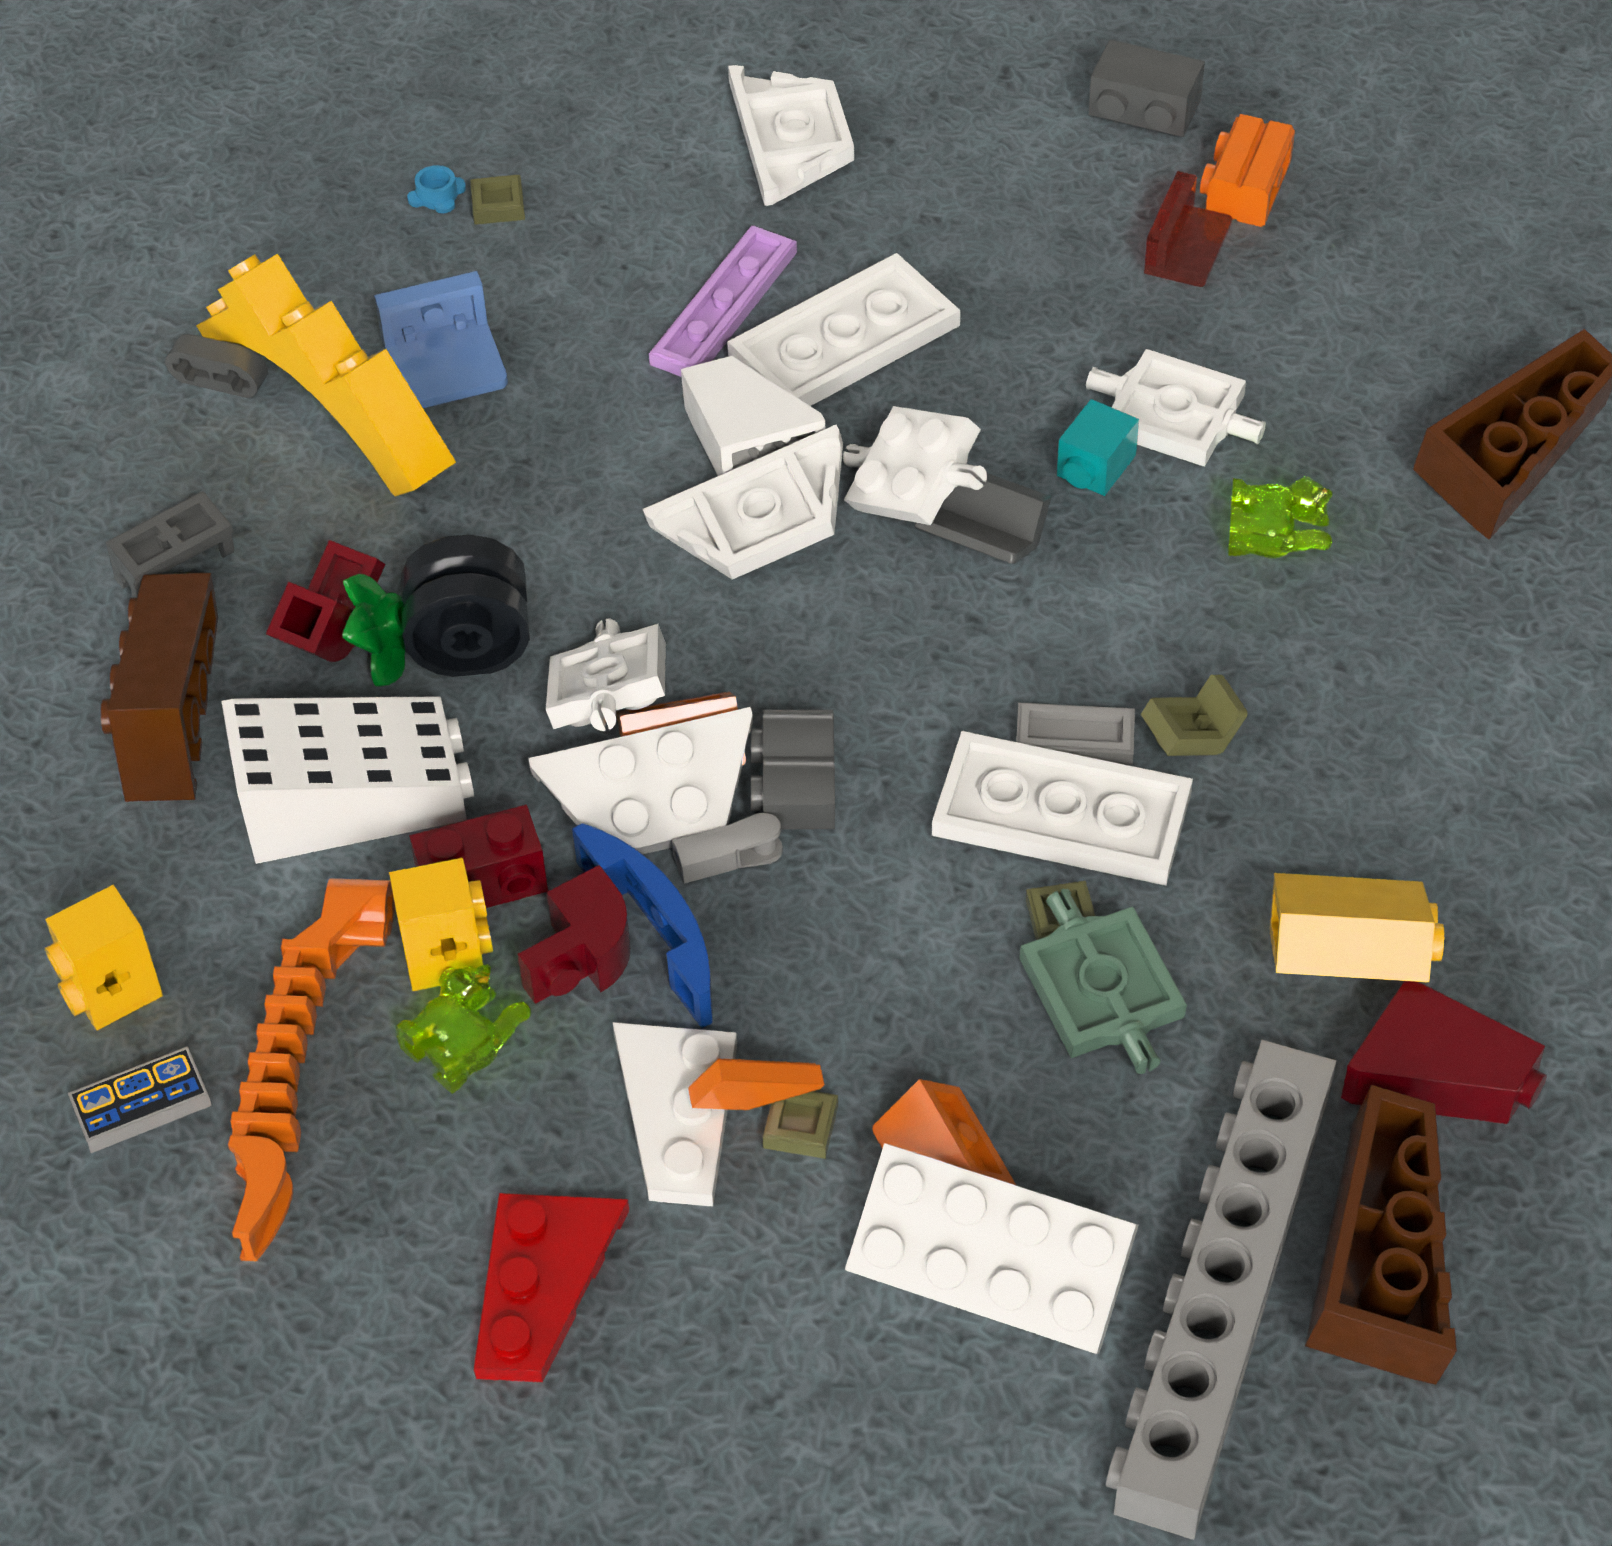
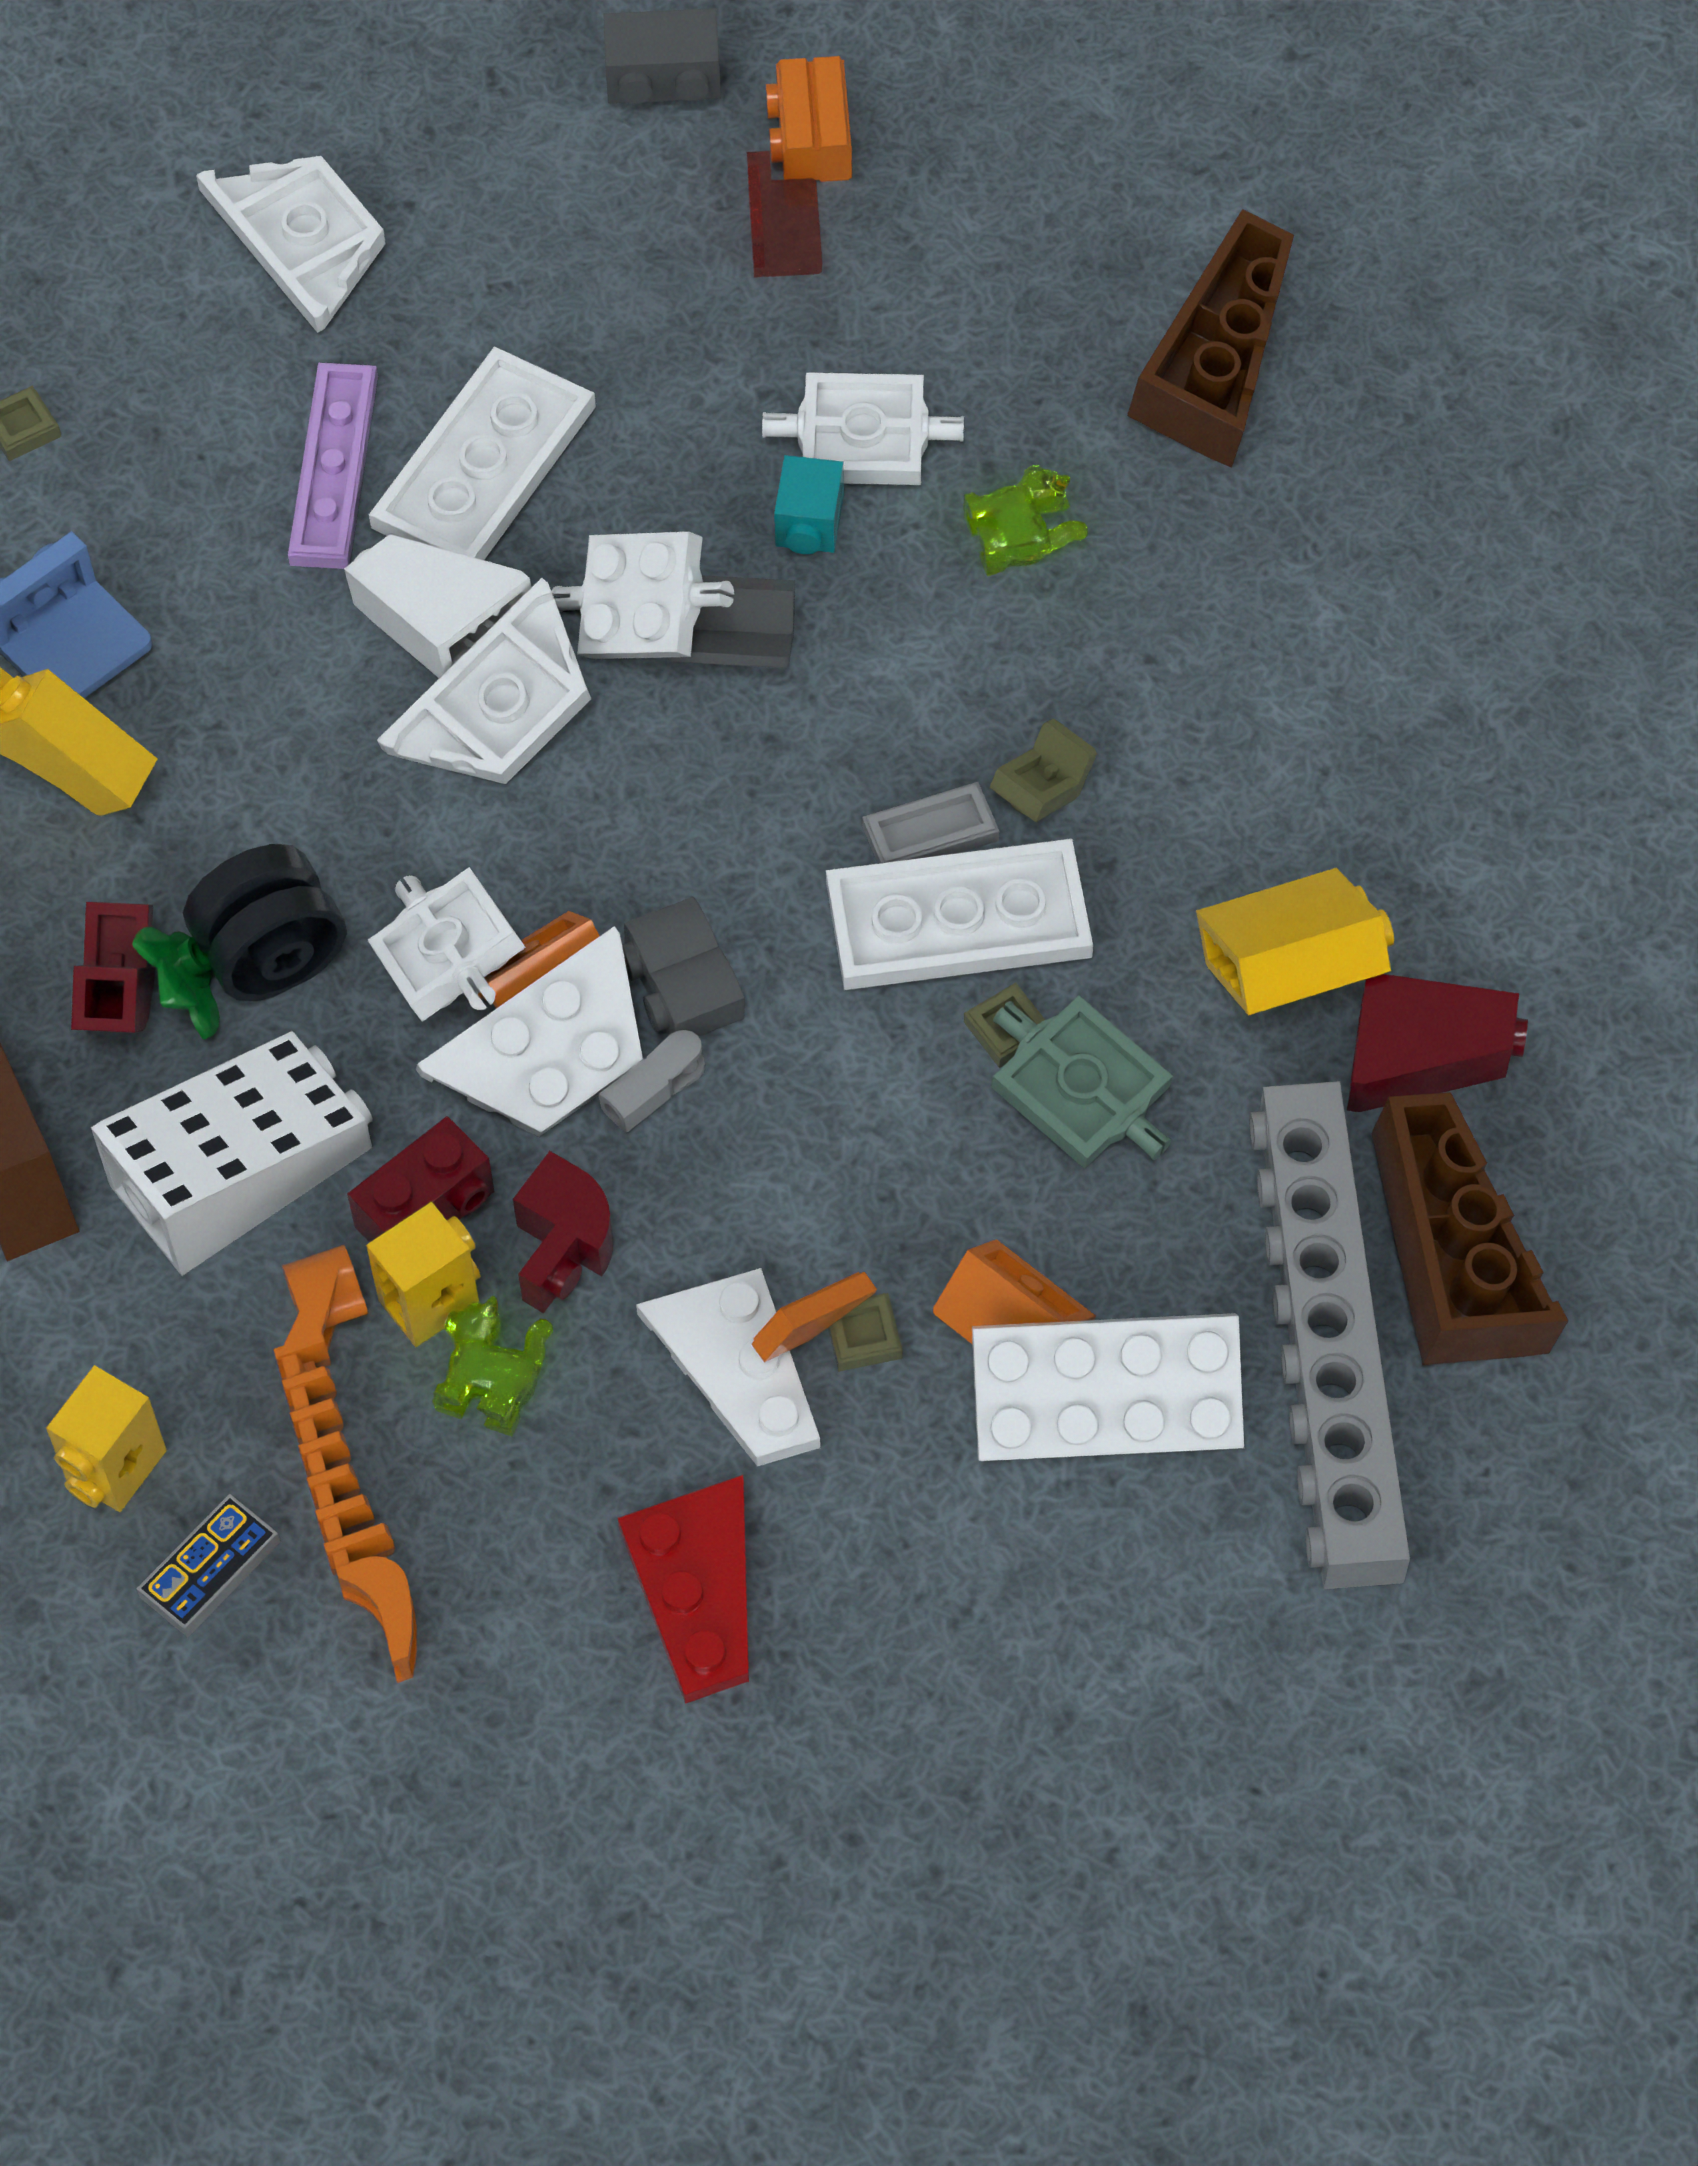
camera: 25 degrees left, 10 degrees up
(664, 909) = (630, 1168): blue slope -> none

